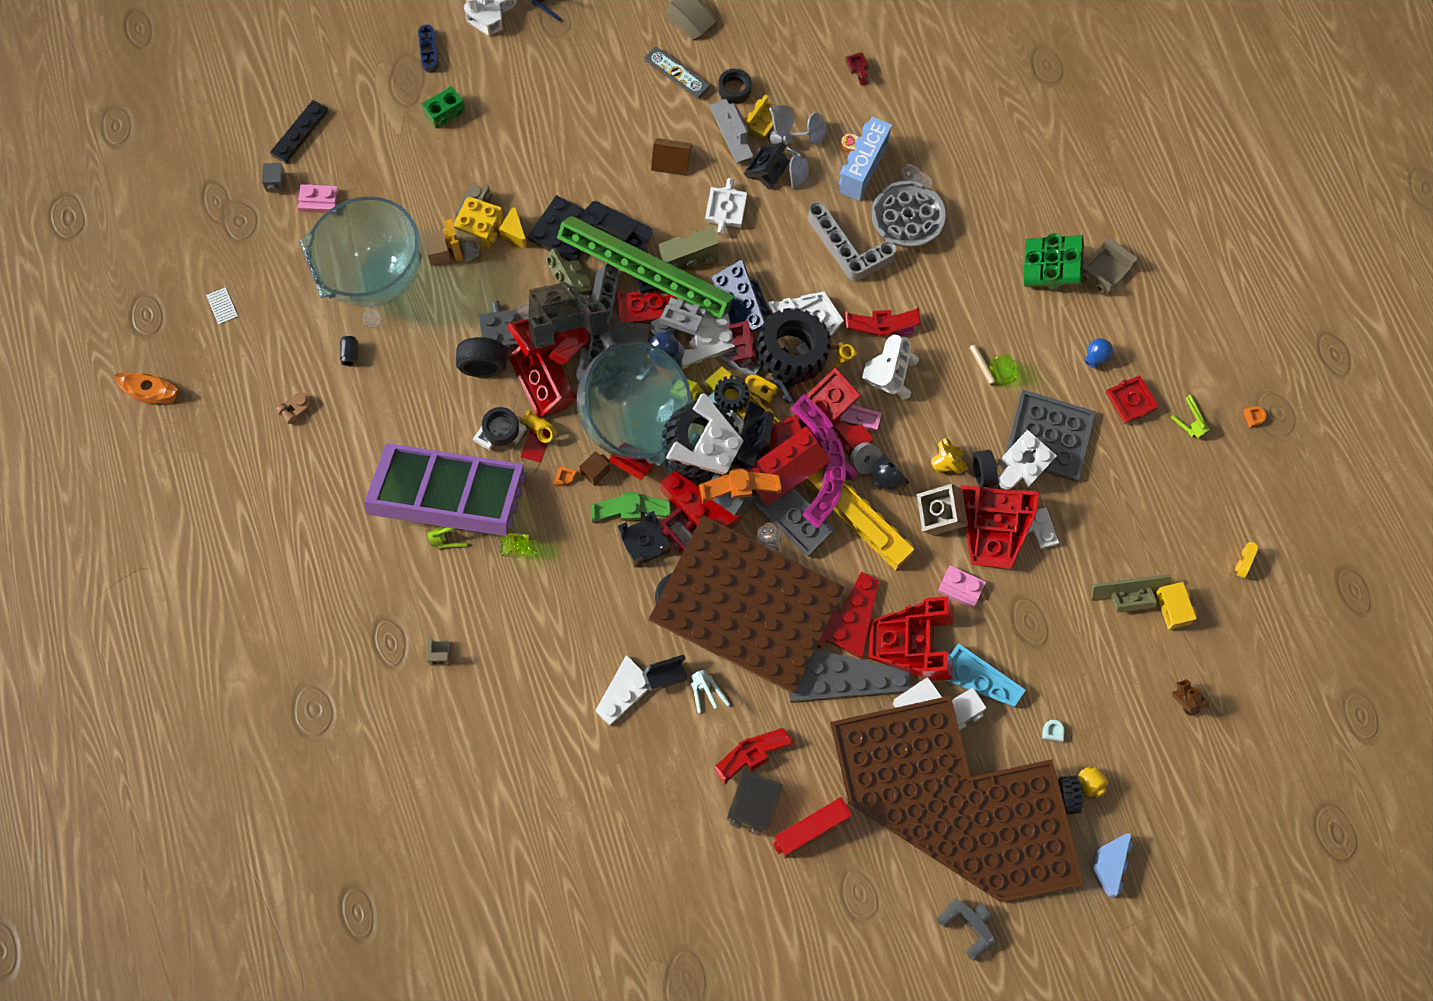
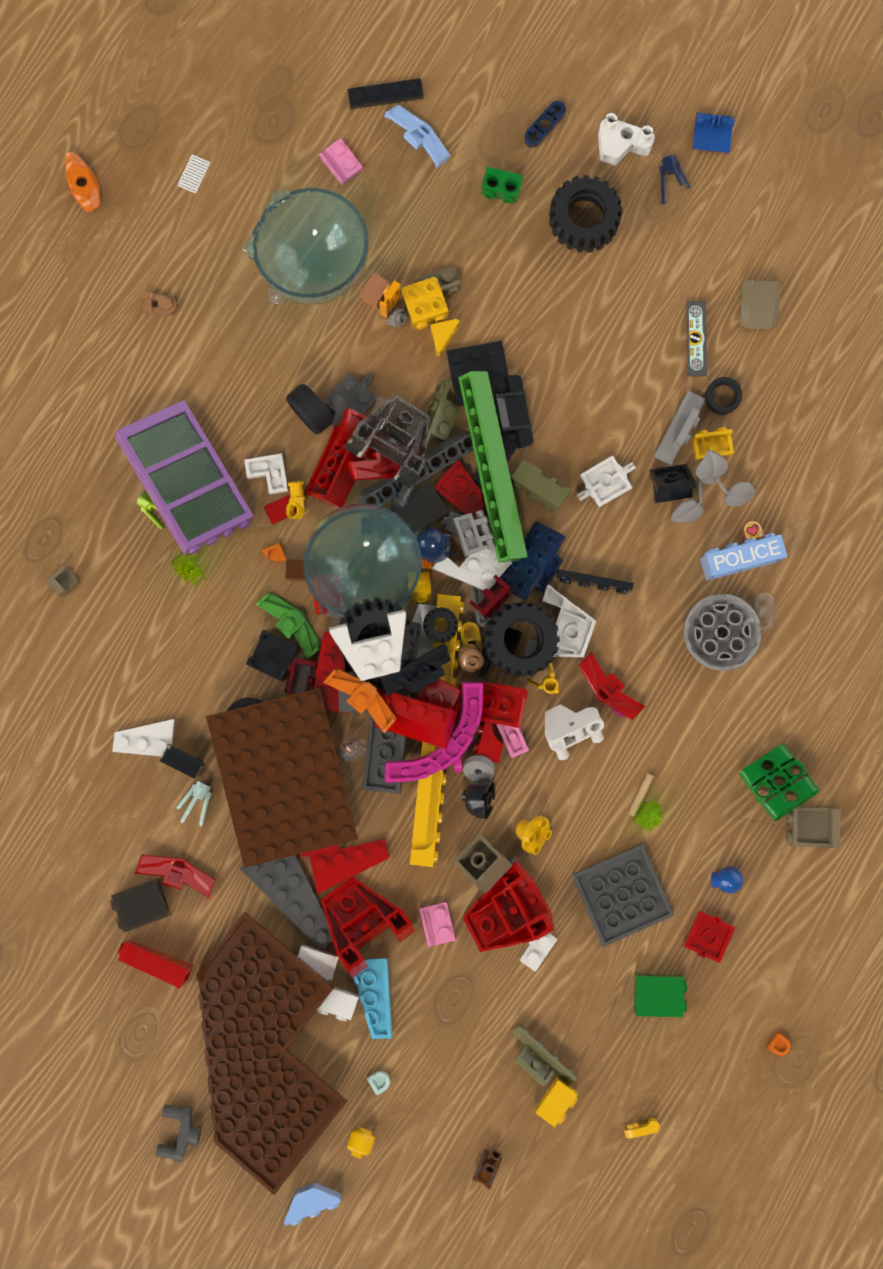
camera: 50 degrees right, 15 degrees up
(273, 177) = (327, 112): dark grey brick -> none
(348, 350) = (236, 302): black piece -> none
(352, 130) = (419, 134): none -> light blue plate
(504, 439) = (268, 458): black tyre -> none
(519, 88) = (585, 190): none -> black tyre
(671, 156) = (615, 399): reddish brown slope -> none
(775, 394) = (471, 658): none -> medium nougat head
(797, 267) = (586, 580): none -> black plate
(844, 246) = (650, 604): light grey beam -> none
(859, 65) = (831, 478): dark red plate -> none
(985, 468) = (546, 869): black tyre -> none
(1024, 462) = (577, 895): white brick -> none
(1071, 794) = (334, 1133): black tyre -> none
(1149, 468) = (659, 995): none -> green brick
(1199, 427) = (730, 1007): lime plant -> none

